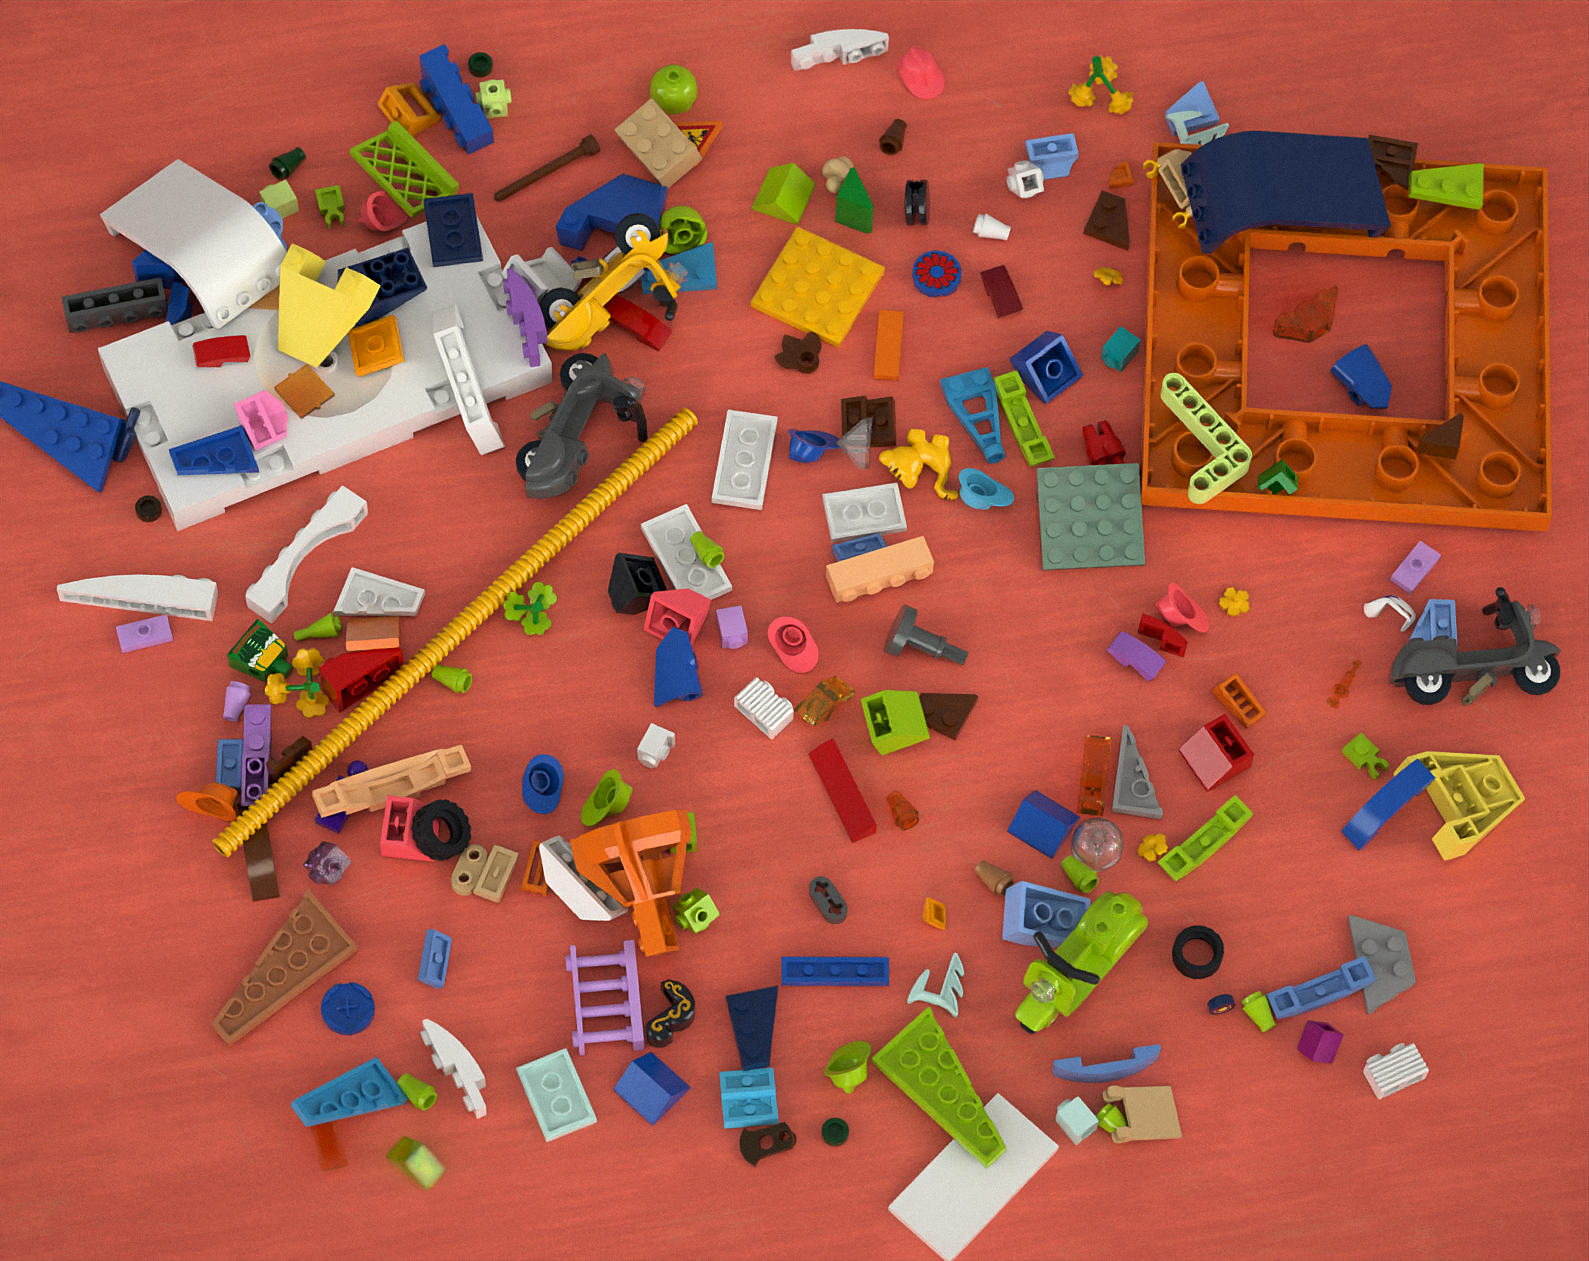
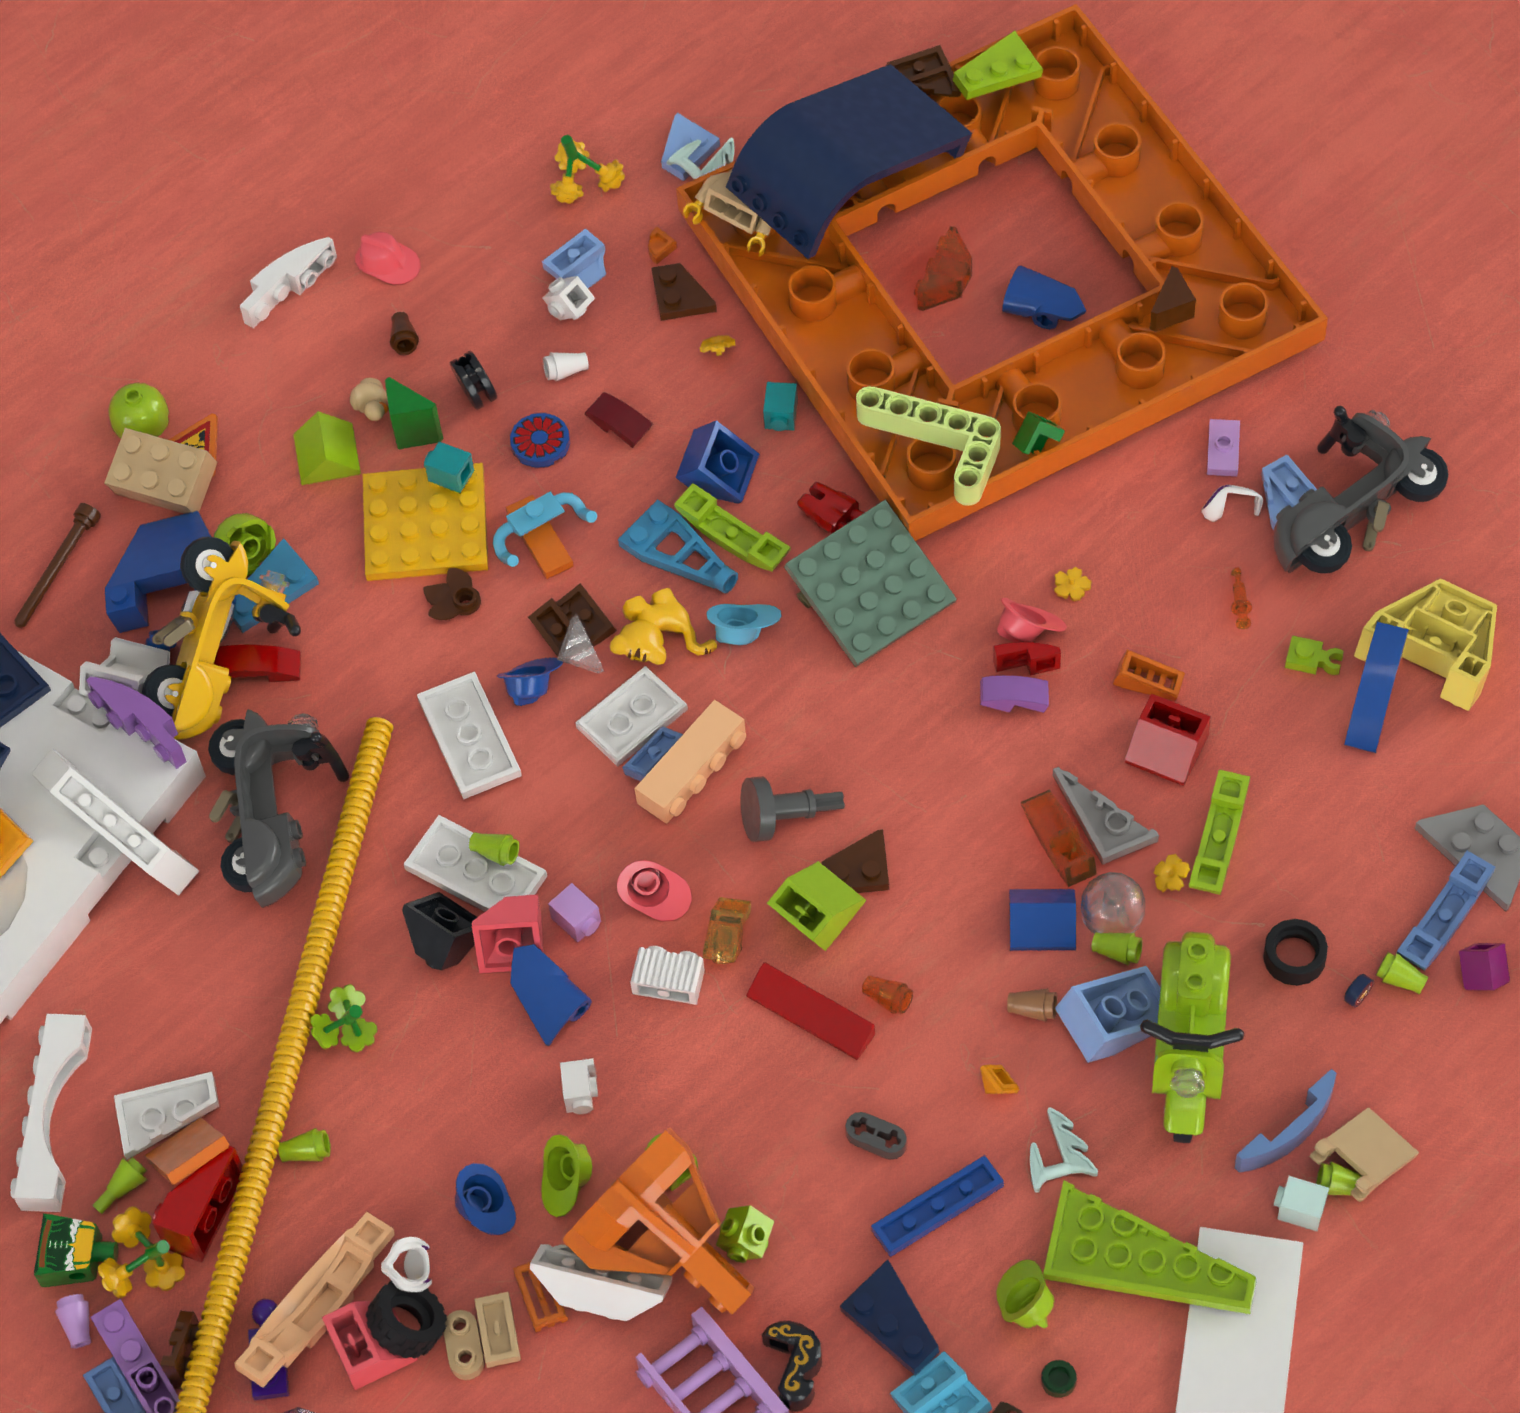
camera: 25 degrees left, 5 degrees down
(470, 800) = (415, 1264): none -> white piece
(856, 257) = (449, 467): none -> teal brick
(893, 328) = (534, 515): none -> medium azure piece

